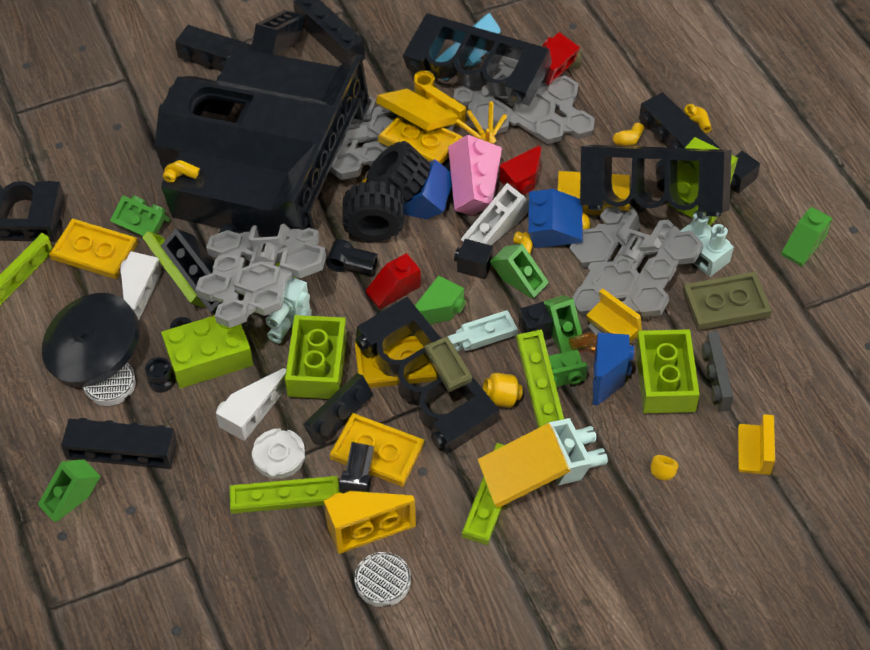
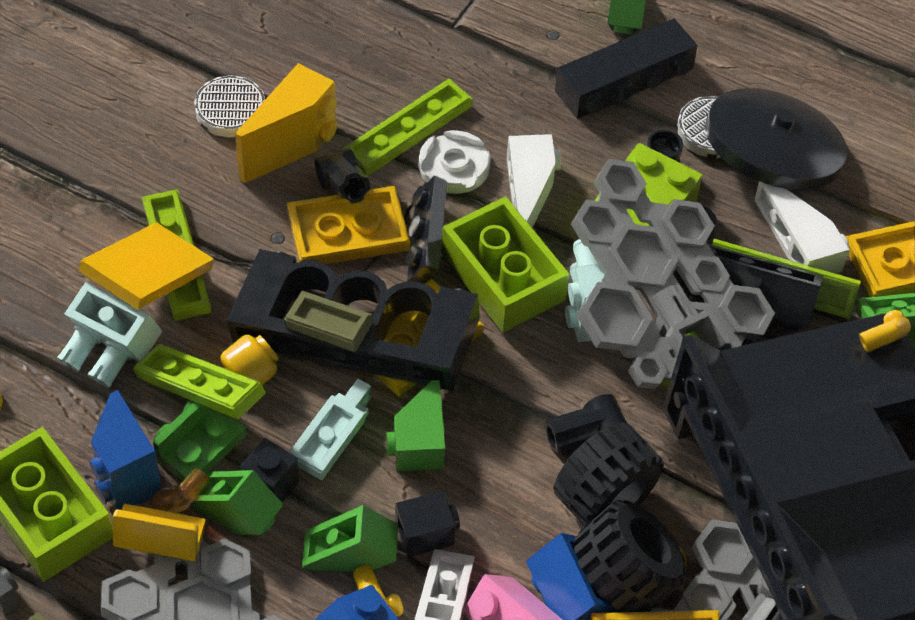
camera: 140 degrees right, 0 degrees up
(394, 281) = (500, 430): red slope -> none

